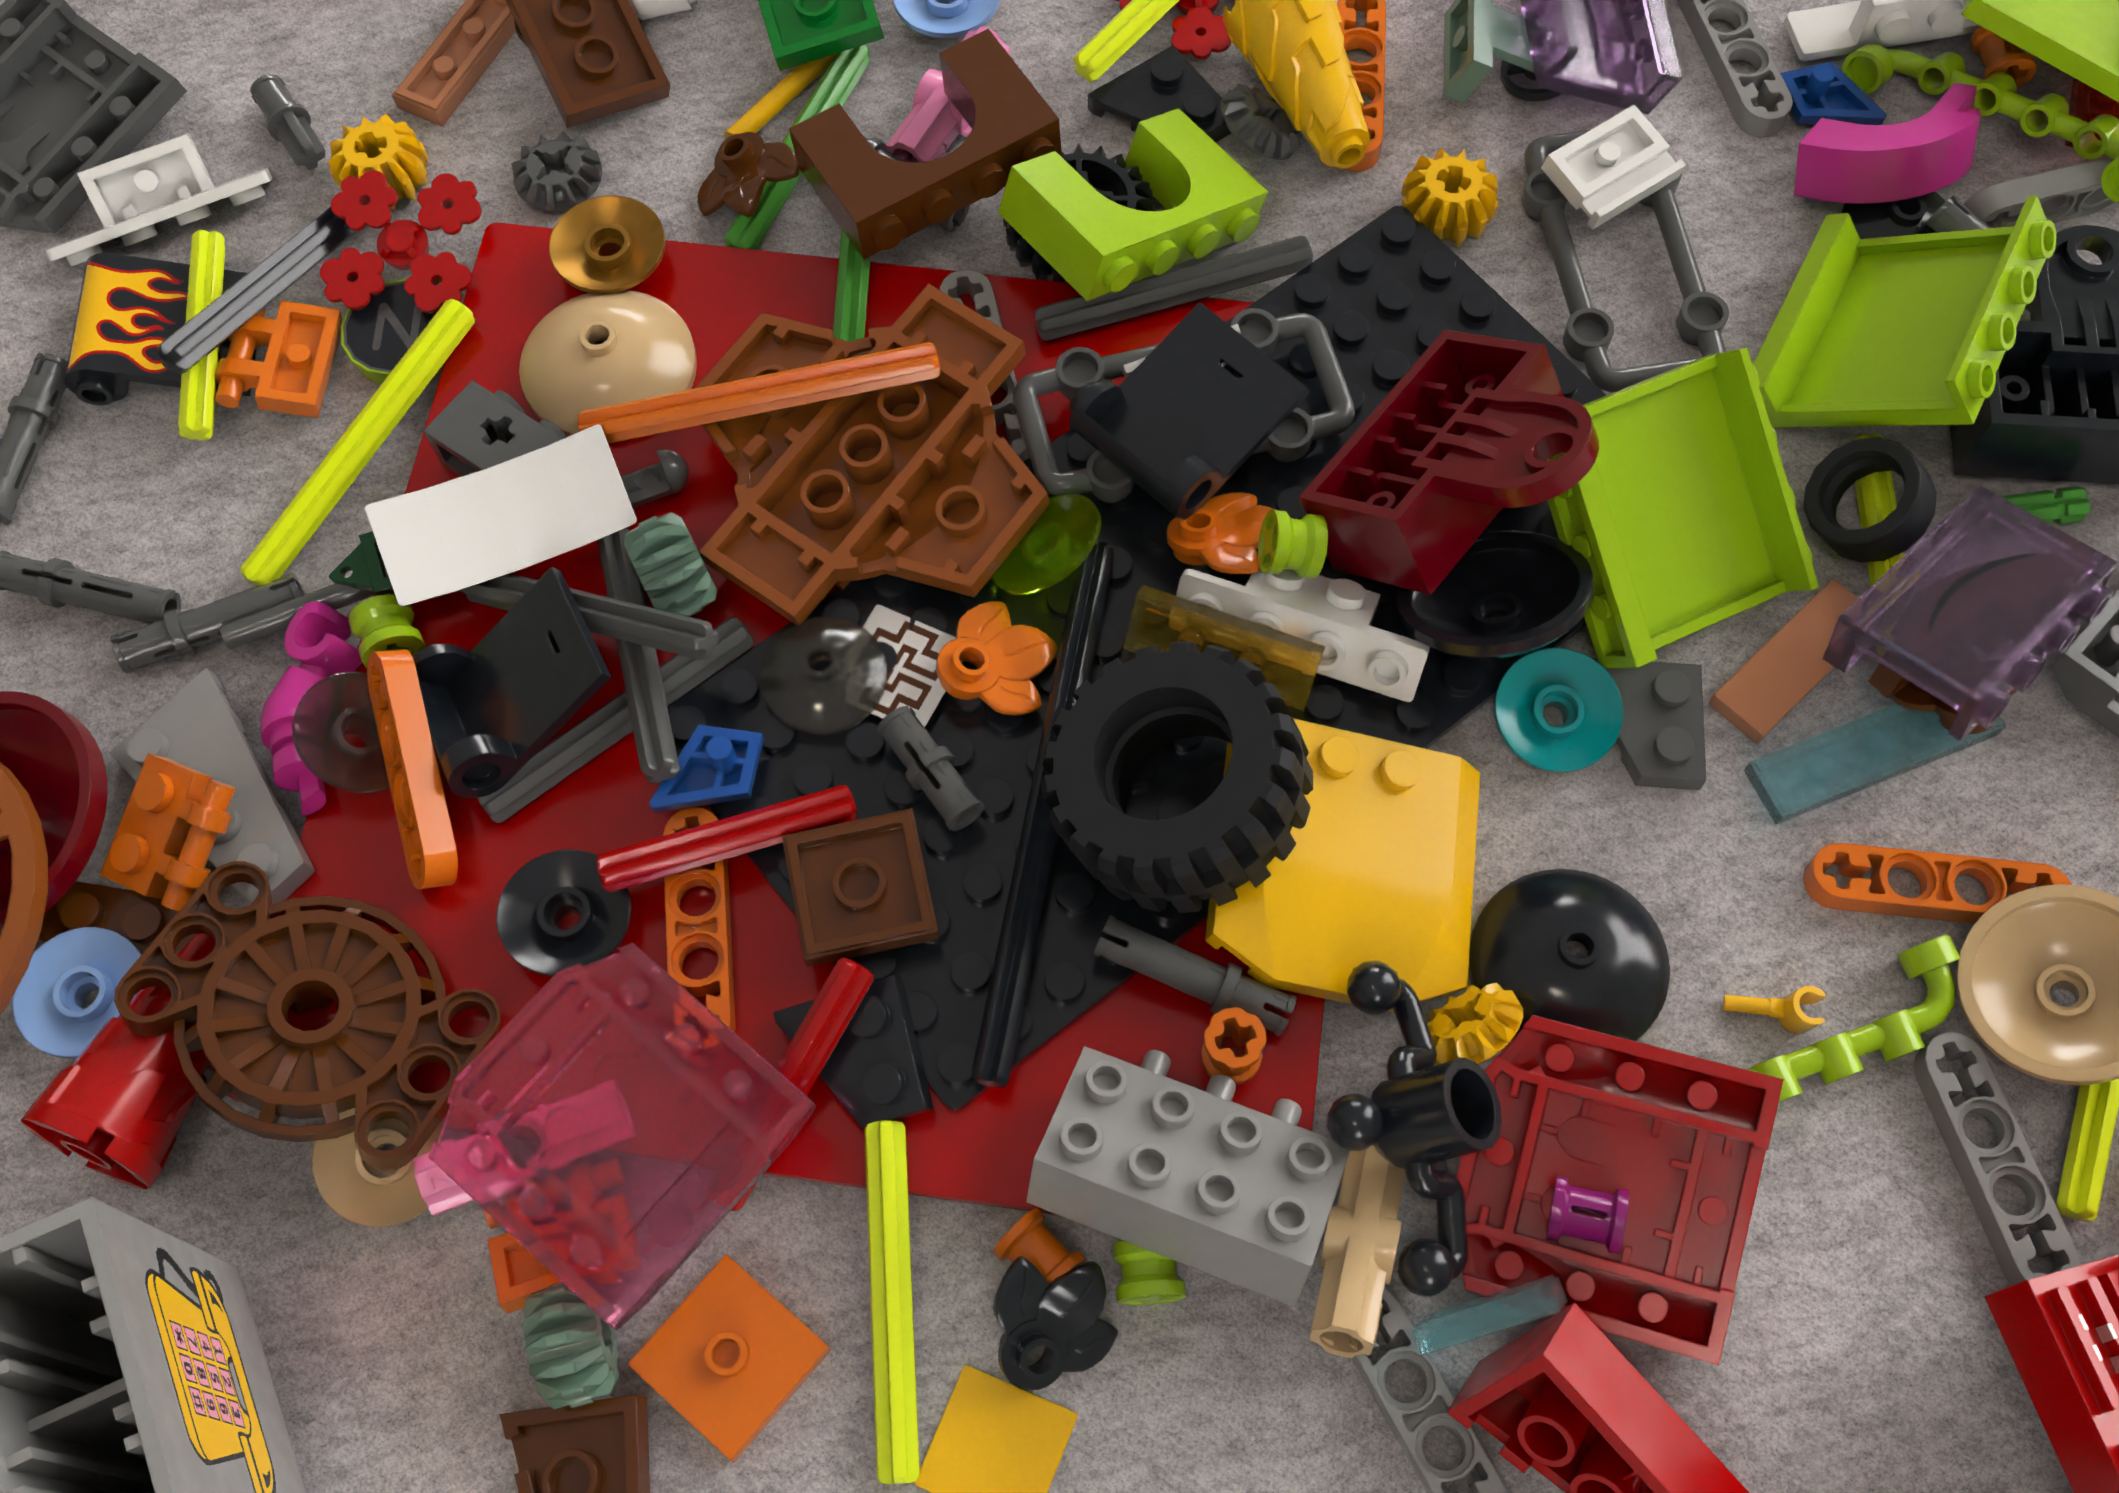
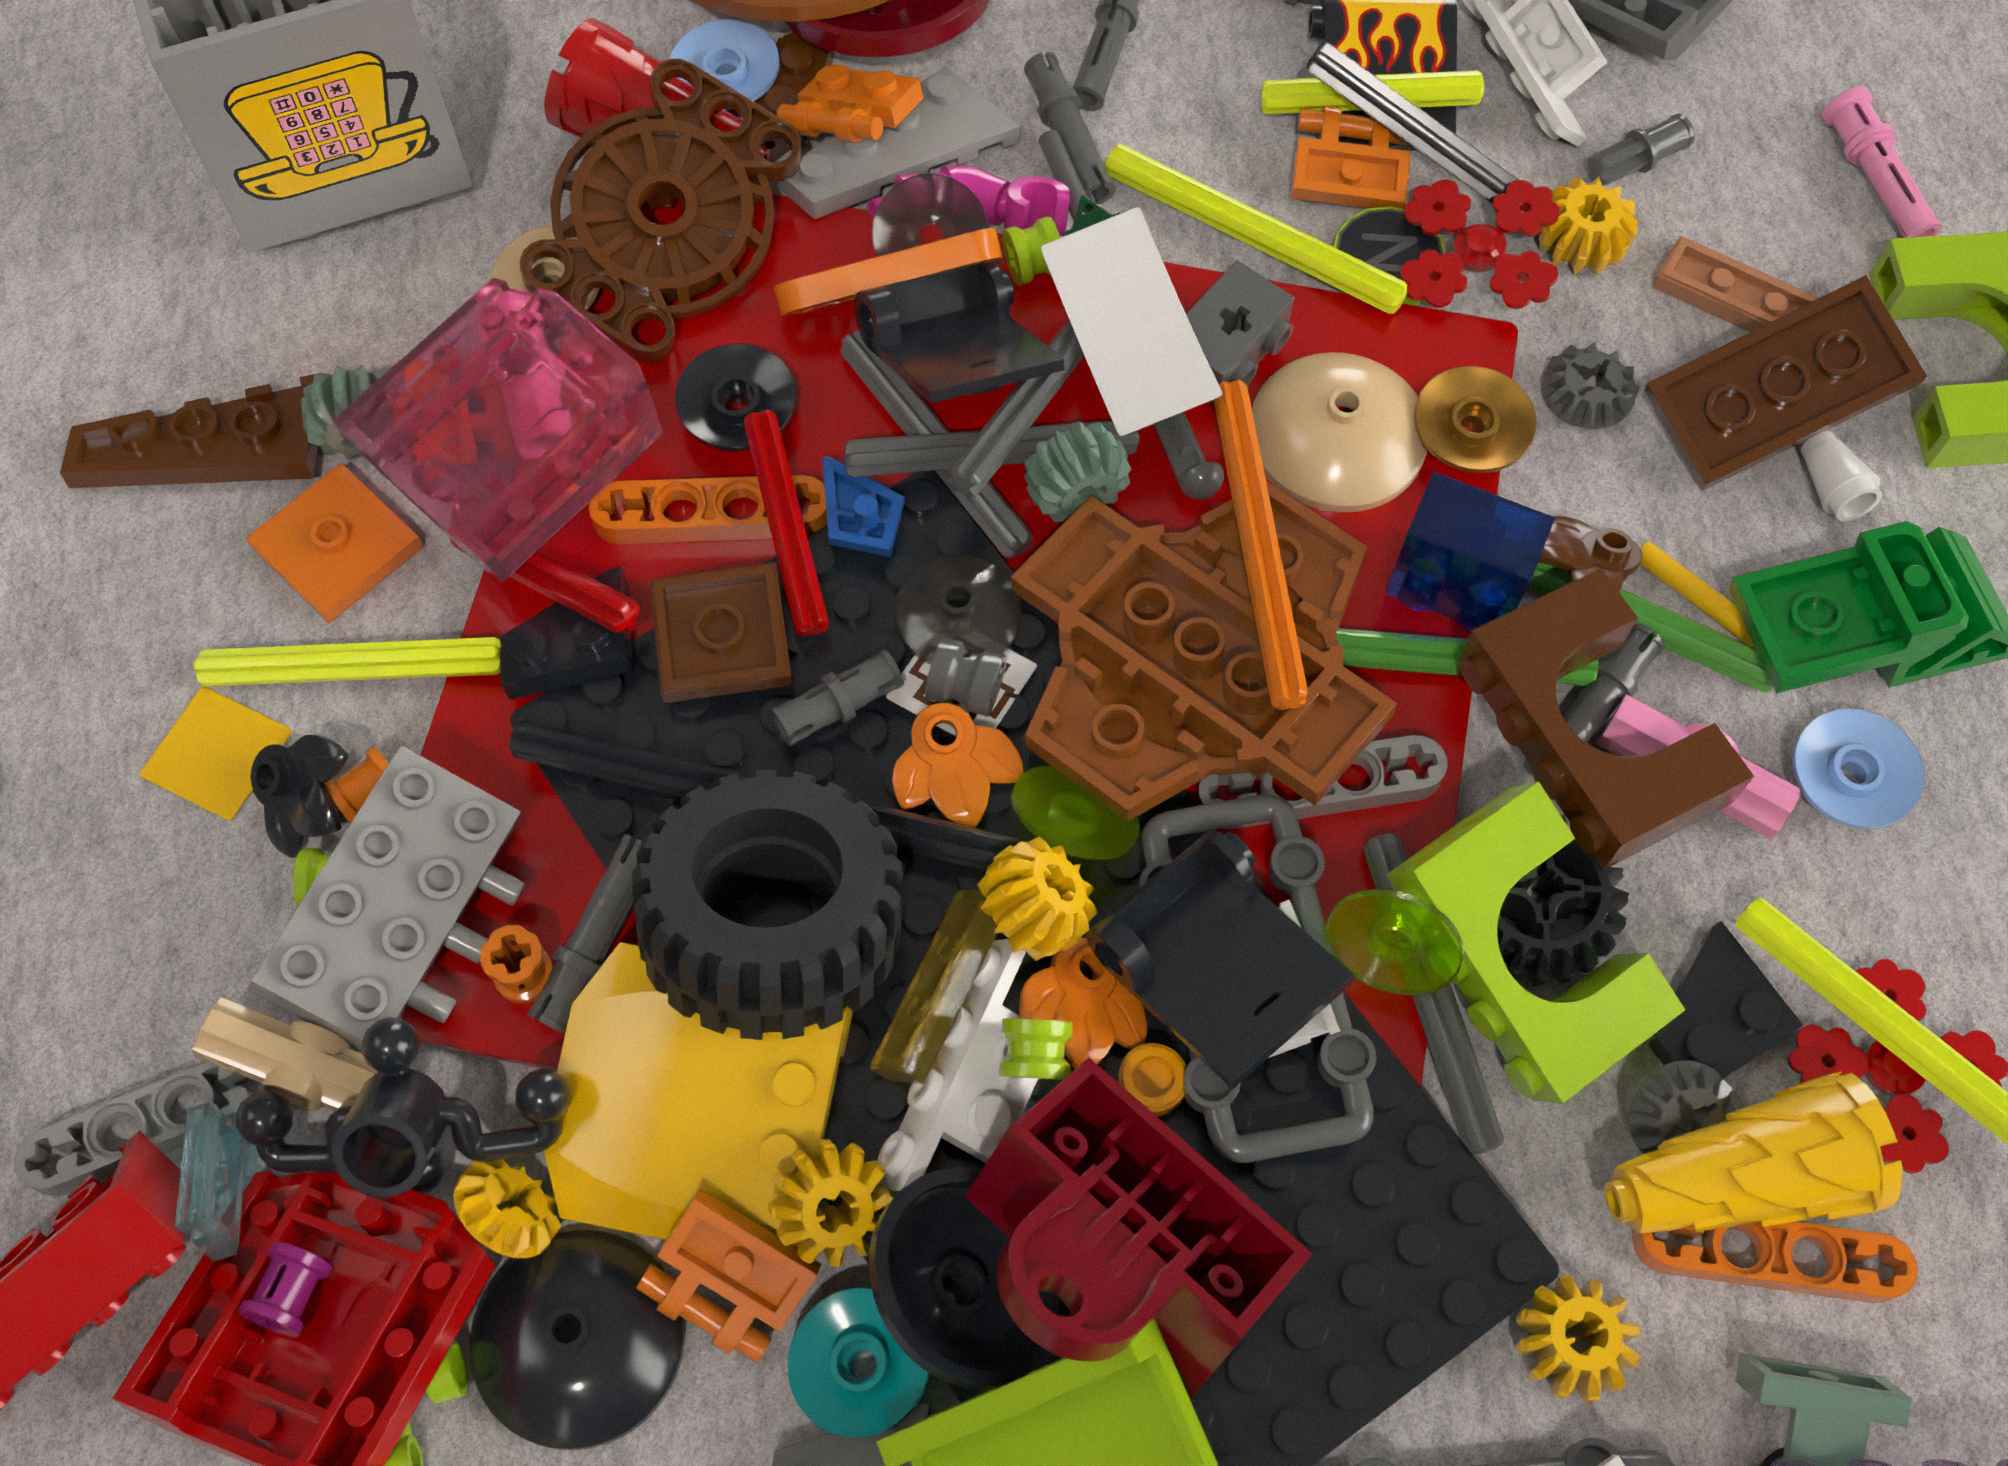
camera: 90 degrees right, 0 degrees up
(767, 236) = (1468, 553): none -> clear blue brick
(906, 648) = (965, 678): none -> dark grey wheel
(1149, 551) = (1037, 898): none -> yellow gear
(1156, 283) = (1395, 942): none -> clear neon green dish
(1282, 480) = (1154, 1077): none -> light orange tile
(1442, 716) = (828, 1178): none -> yellow gear
(1497, 806) = (737, 1262): none -> orange plate

